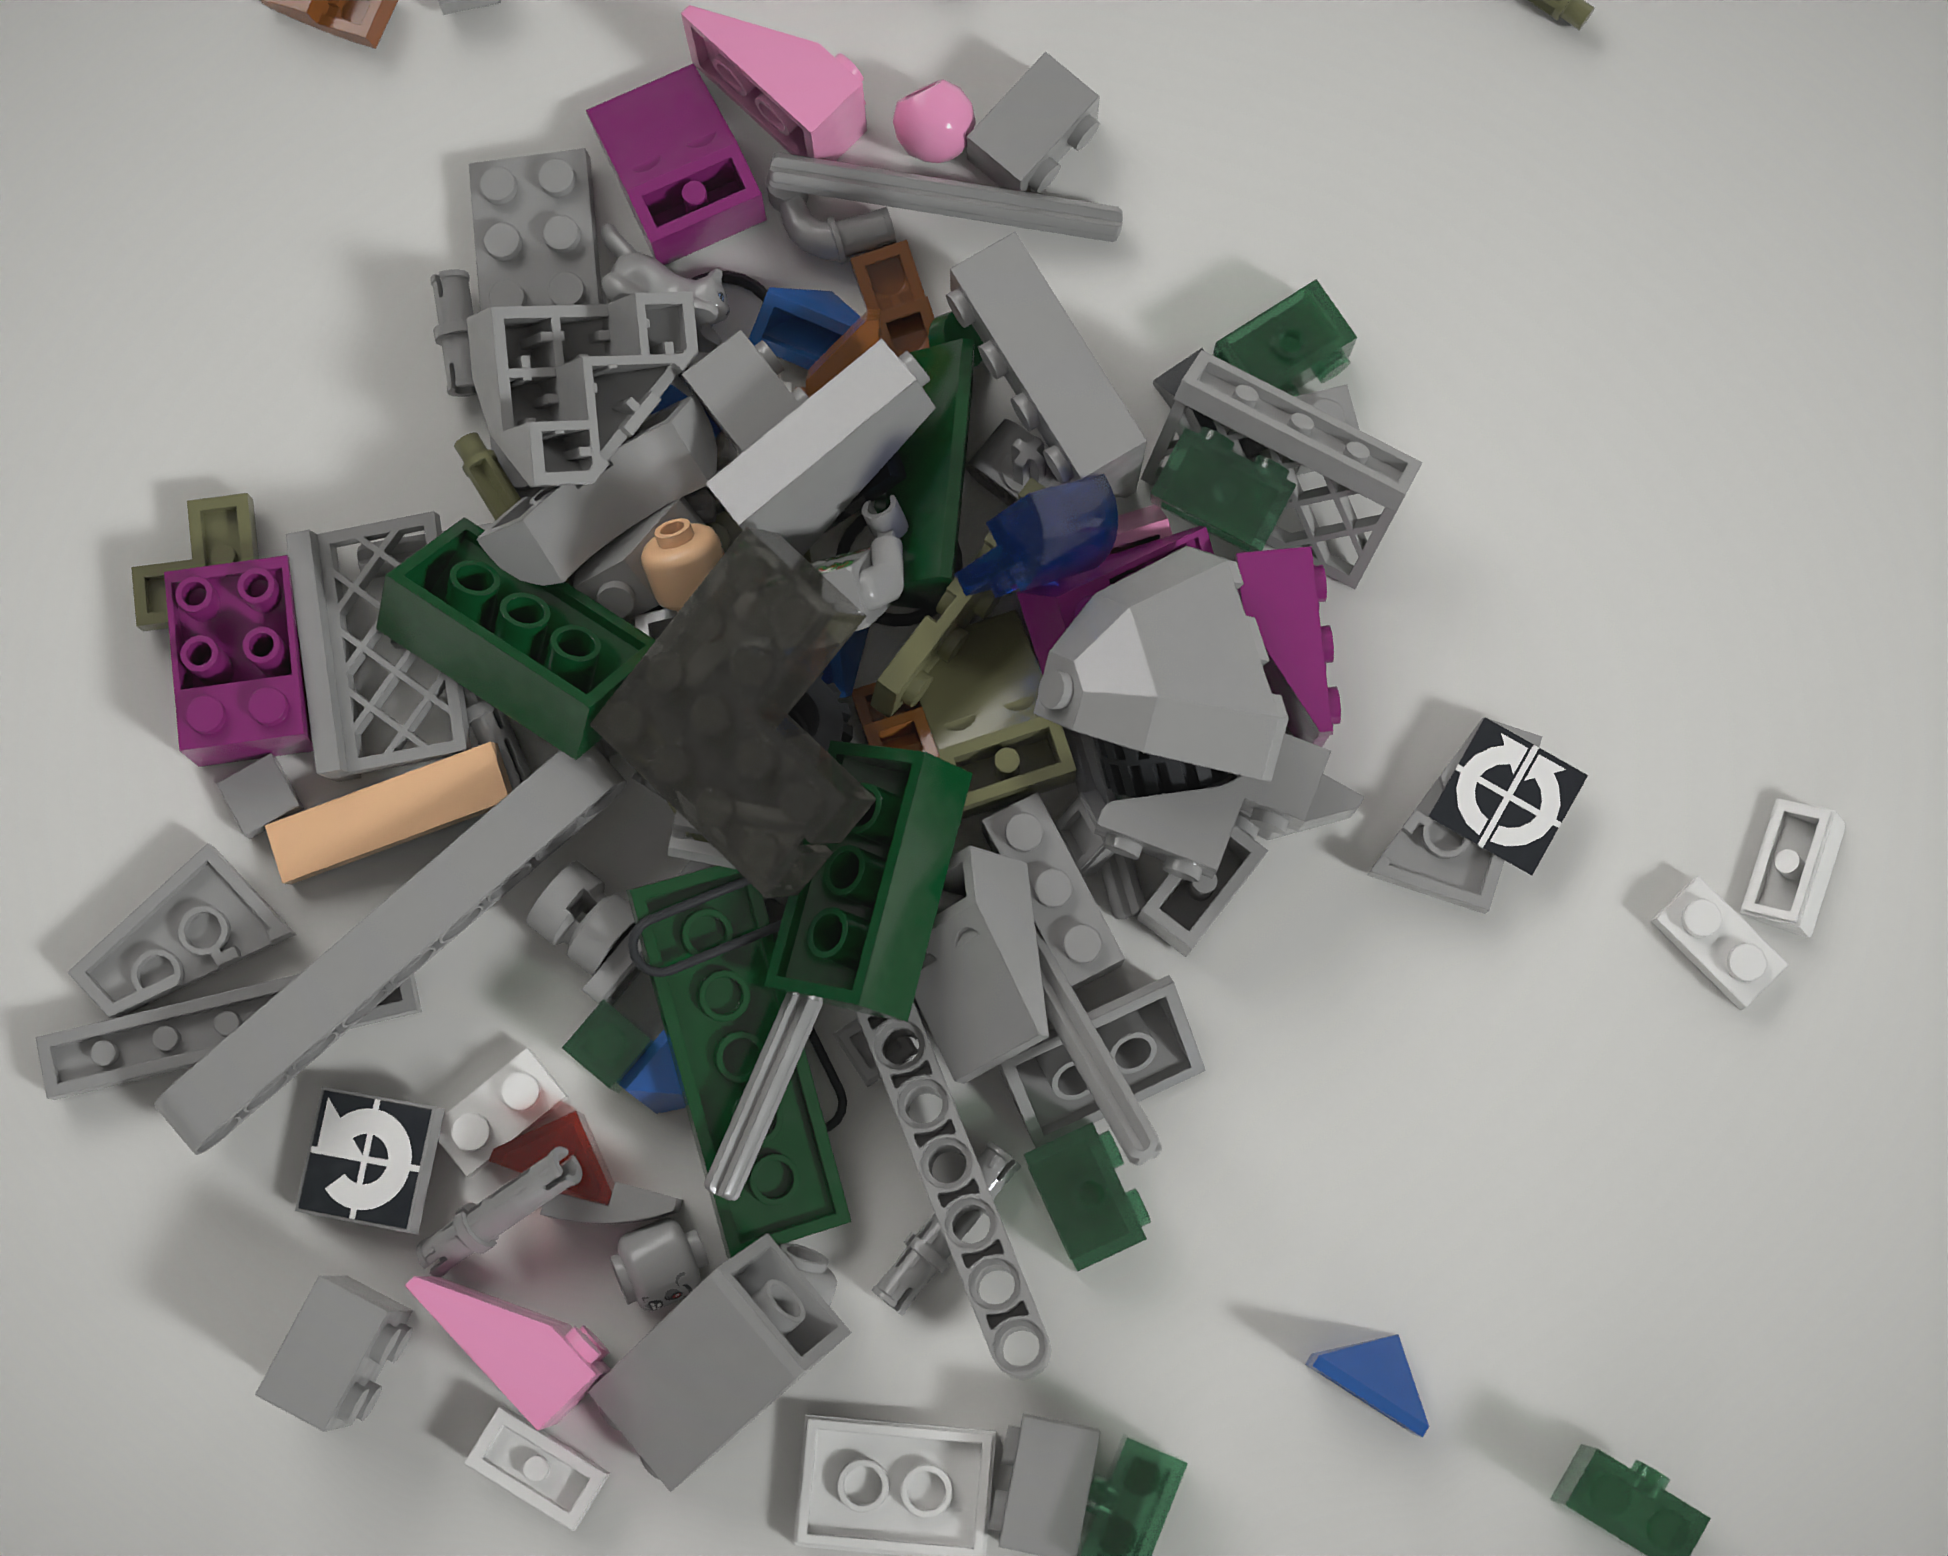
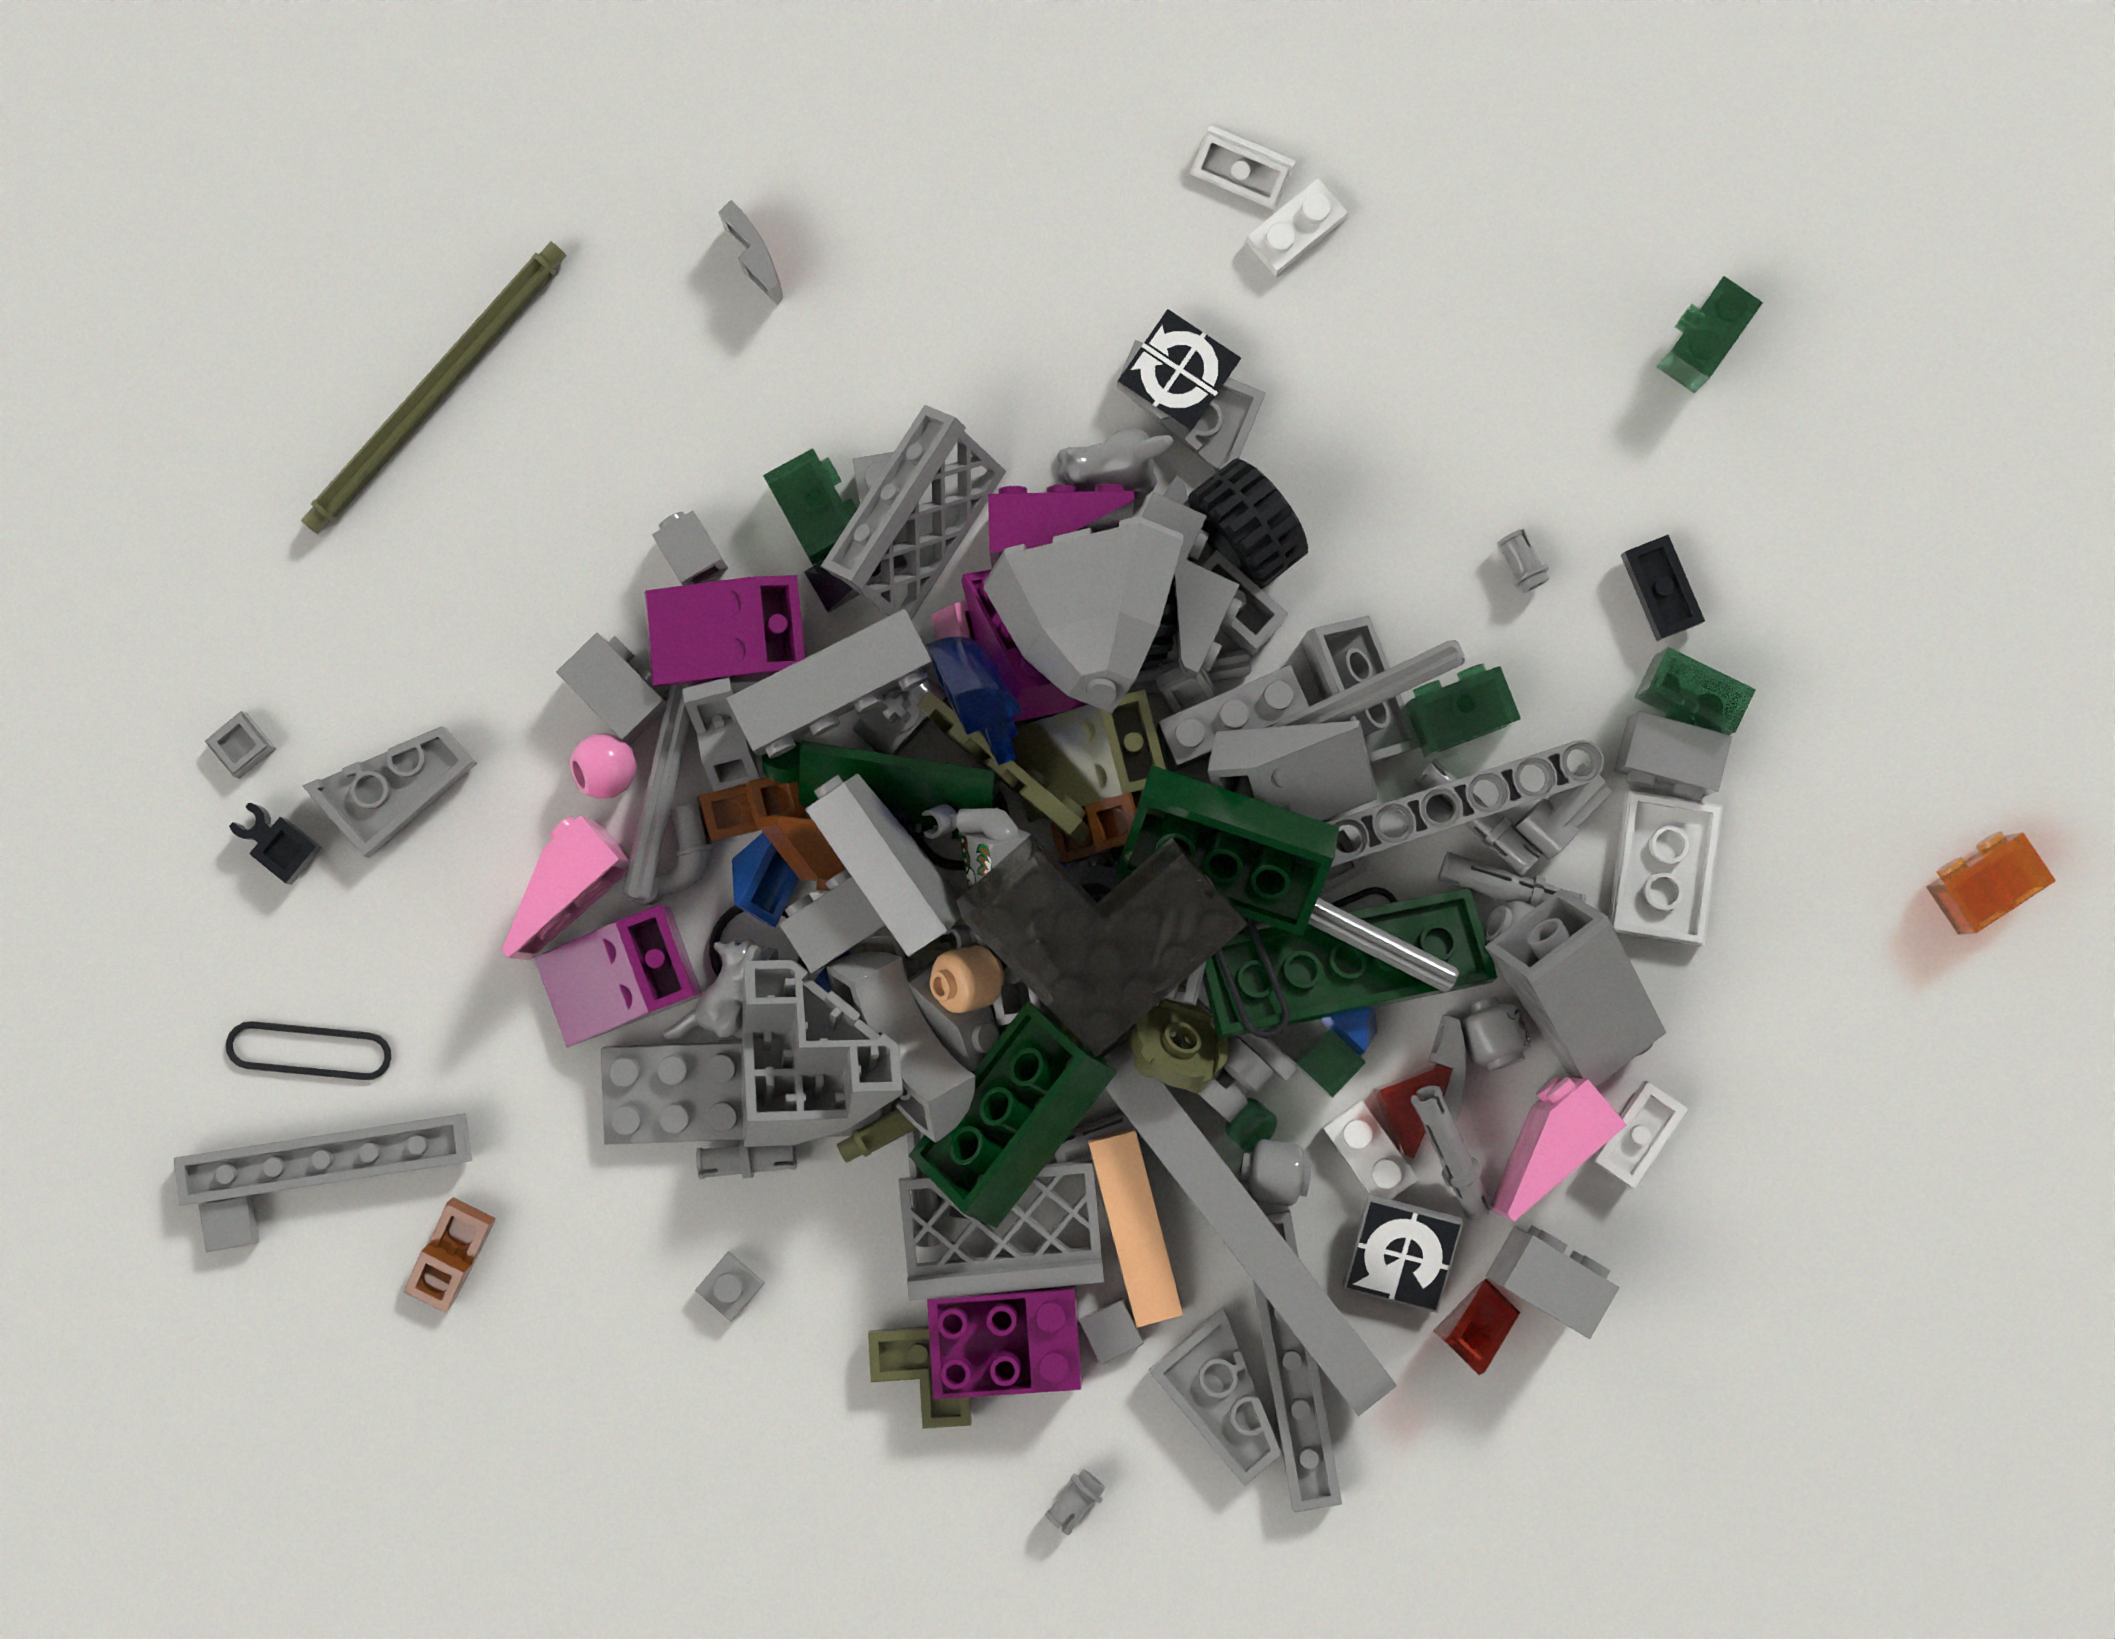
camera: 85 degrees left, 5 degrees up
(48, 766) = (1076, 1501): none -> light grey pin
(272, 1260) = (1478, 1326): none -> clear red slope
(302, 327) = (729, 1286): none -> light grey plate
(466, 987) = (1276, 1172): none -> light grey head
(525, 955) = (1251, 1125): none -> clear green tile
(587, 835) = (1161, 1058): none -> olive plate
(858, 1271) = (1496, 881): none -> light grey pin
(950, 1333) = (1555, 820): none -> light grey piece
(957, 245) = (721, 741): none -> light grey brick
(1113, 245) = (724, 630): none -> magenta slope
(1216, 203) = (689, 548): none -> light grey brick
(1223, 490) = (935, 558): clear green brick -> none
(1274, 1463) = (1662, 587): none -> black plate
(1295, 1271) = (1523, 561): none -> light grey pin
(1307, 891) = (1250, 522): none -> black tyre
(1375, 723) = (1121, 460): none -> light grey animal
(1378, 1377) = (1602, 509): blue slope -> none
(1600, 256) = (756, 258): none -> light grey slope

